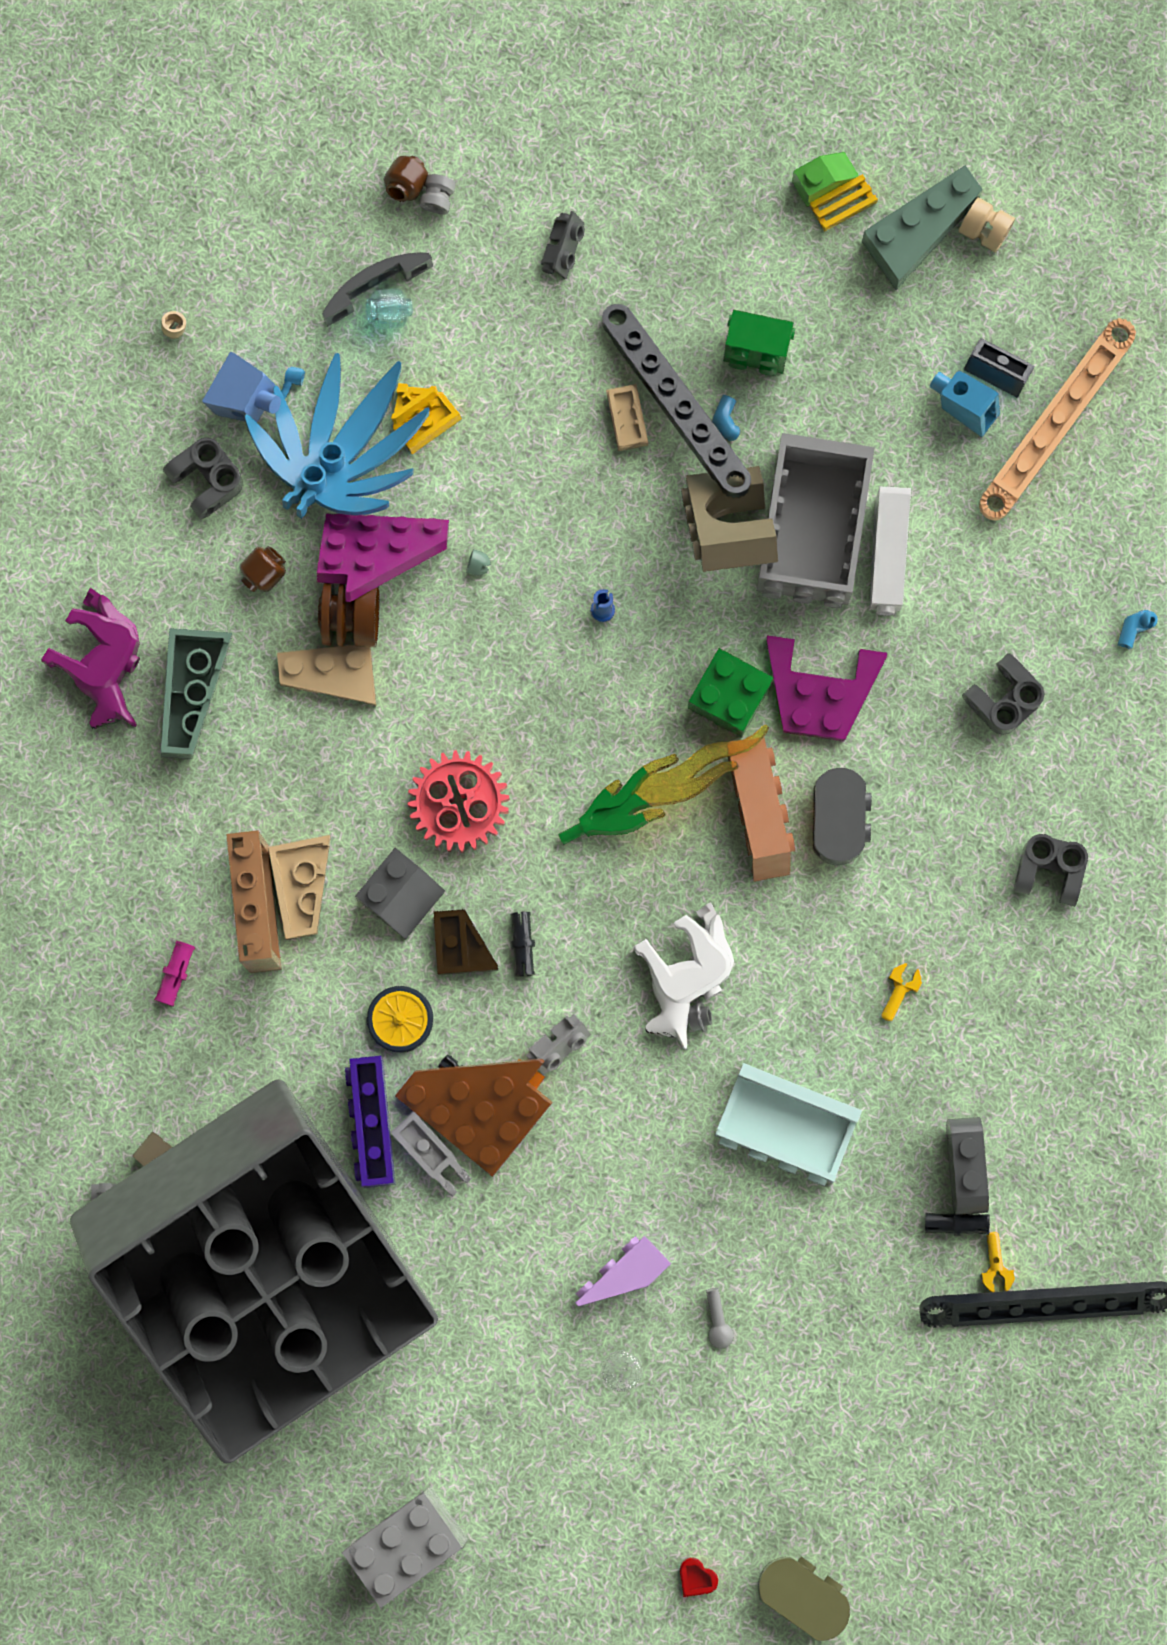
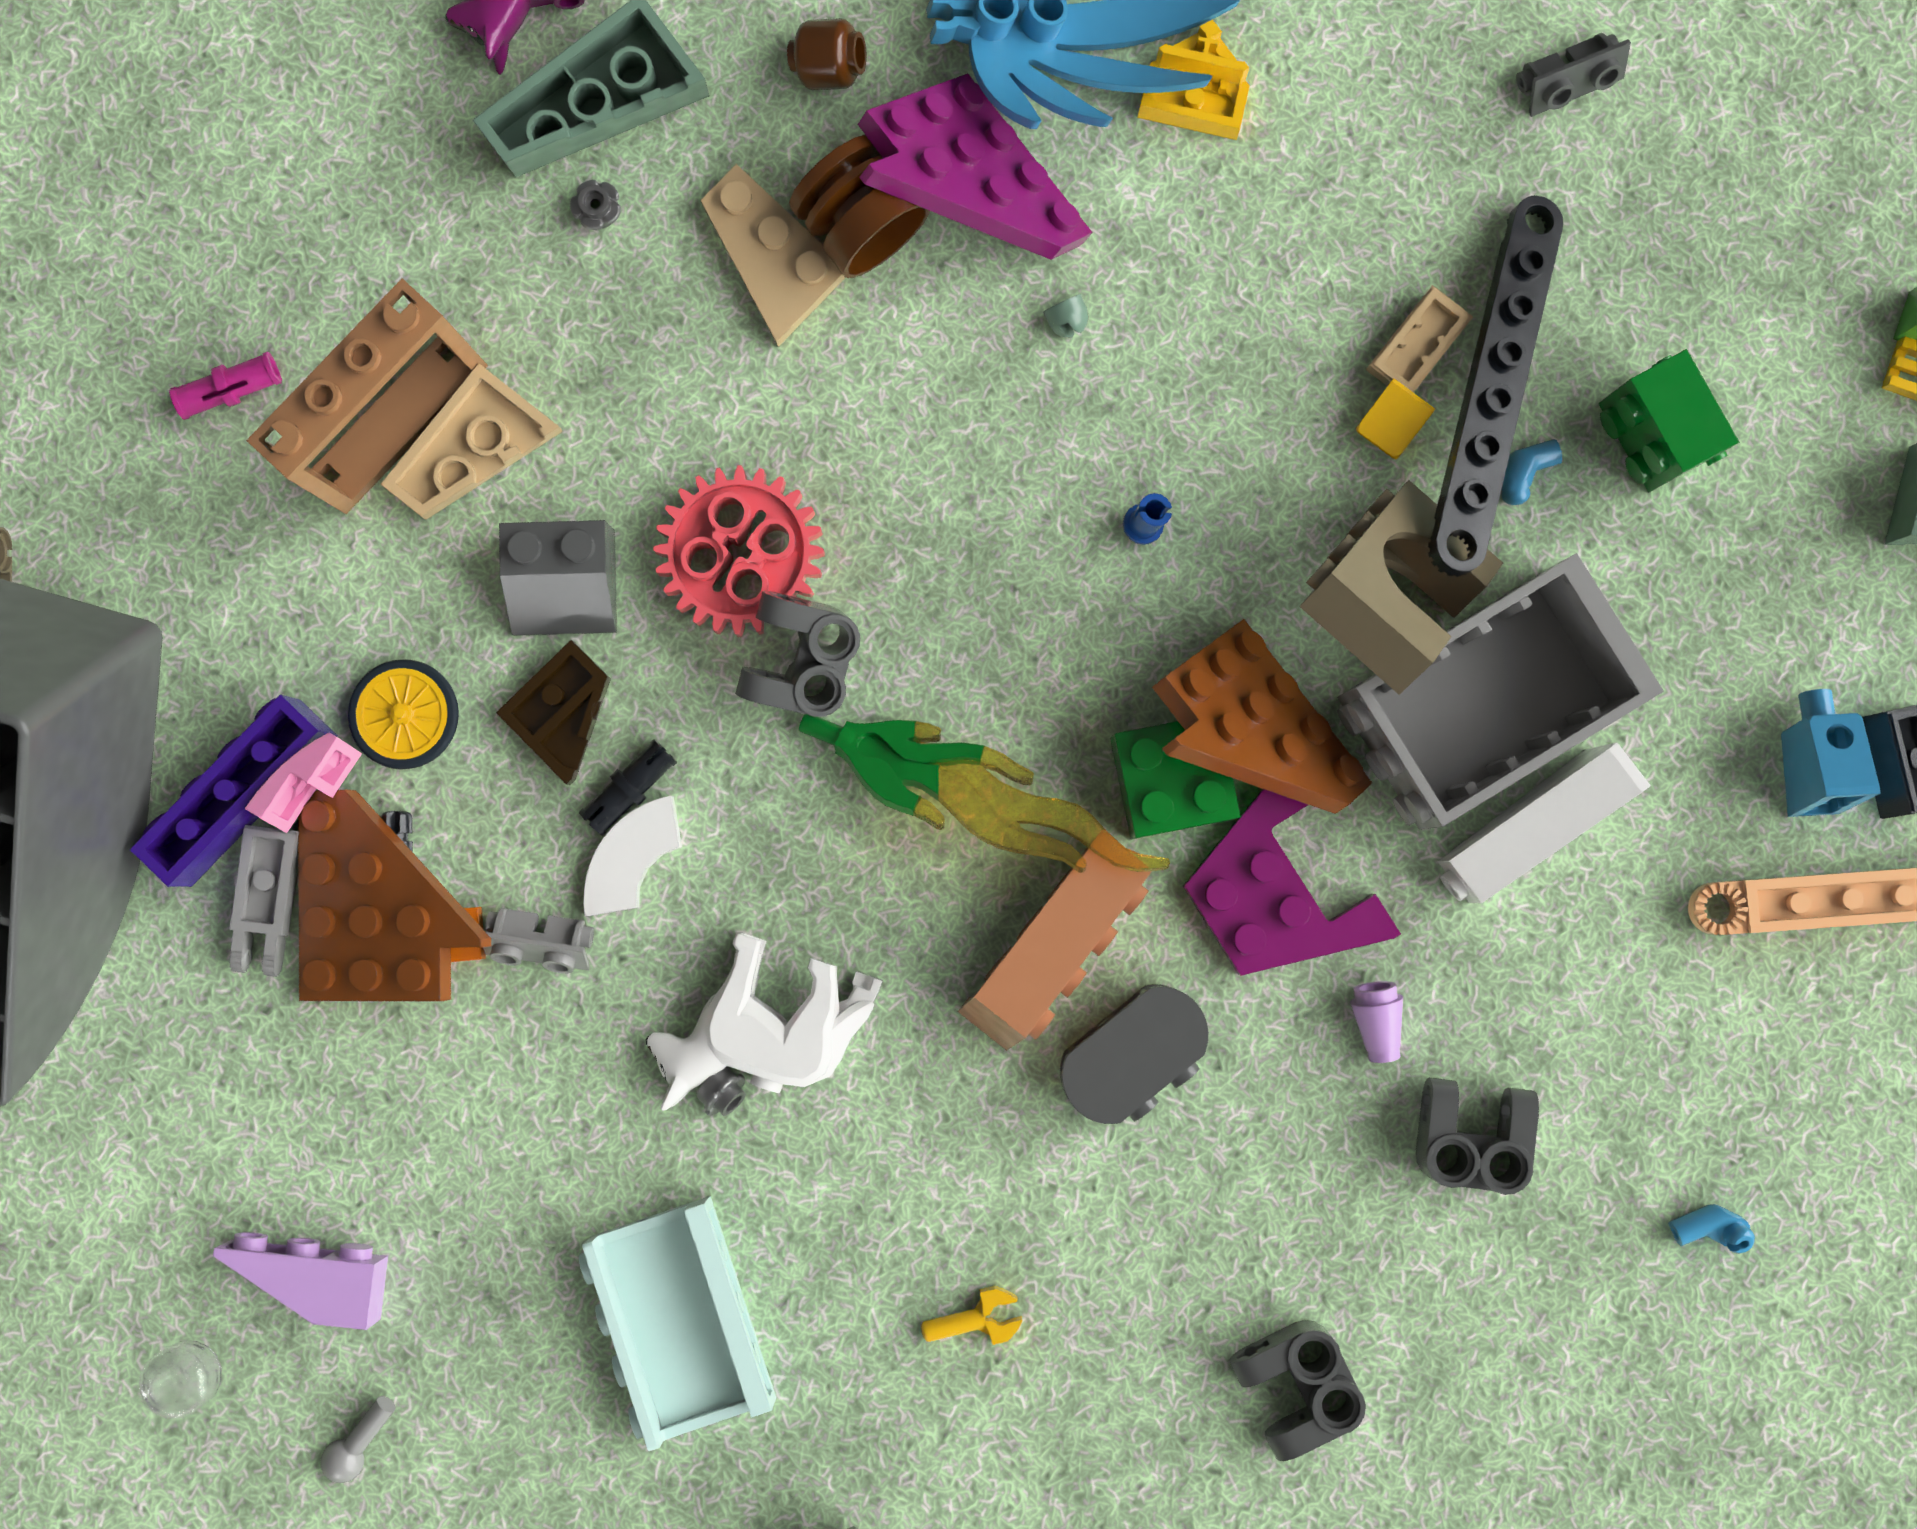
camera: 50 degrees right, 5 degrees up
(230, 733) = (602, 216): none -> flat silver plate
(395, 1074) = (316, 766): none -> bright pink slope
(537, 808) = (810, 658): none -> dark grey piece
(553, 970) = (627, 854): none -> white tile
(652, 458) = (1394, 419): none -> yellow slope
(738, 635) = (1256, 724): none -> dark orange wing
(917, 695) = (1379, 1019): none -> lavender cone

